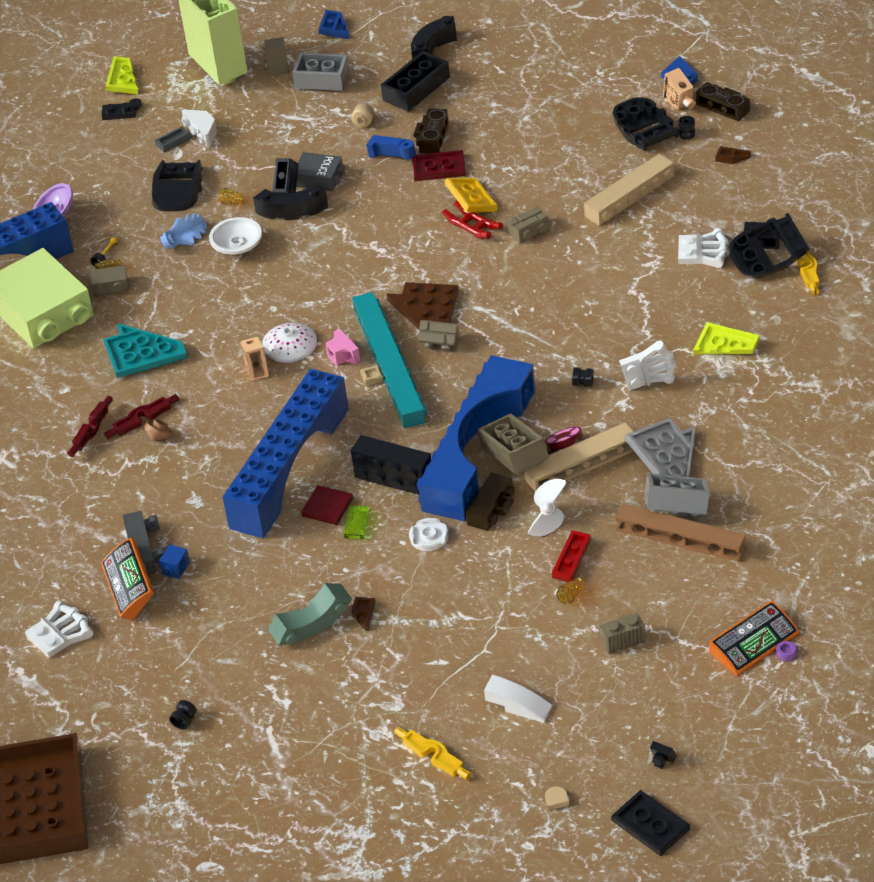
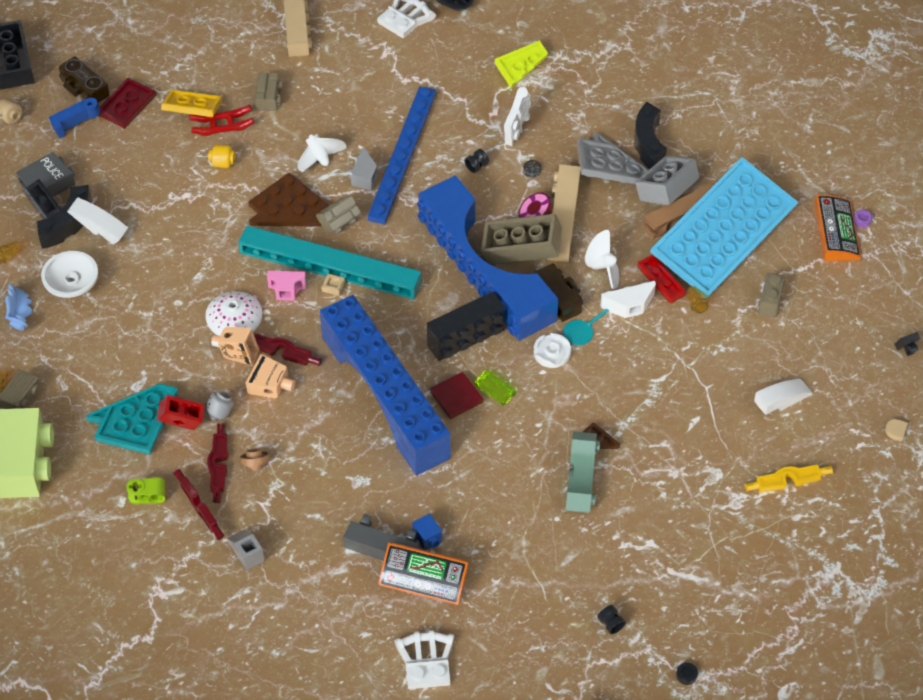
camera: 60 degrees left, 10 degrees up
(70, 473) = (246, 548): none -> light grey slope
(80, 393) = (147, 490): none -> lime piece
(159, 364) = (180, 412): none -> red brick
(172, 792) = (686, 673): none -> black tile
(188, 381) = (219, 405): none -> light grey head
(241, 392) = (268, 378): none -> light nougat torso
(280, 380) = (290, 353): none -> dark red piece
(298, 217) = (97, 220): none -> white slope
(434, 241) = (222, 156): none -> yellow head
(468, 540) = (579, 331): none -> teal piece
(497, 287) = (319, 149): none -> white piece
(503, 322) = (364, 171): none -> light grey slope
(528, 550) = (629, 300): none -> white slope
(548, 334) = (401, 155): none -> blue plate
(614, 415) = (532, 168): none -> clear smoke tile
(665, 559) = (724, 227): none -> medium azure plate
(726, 453) = (645, 141): none -> black brick

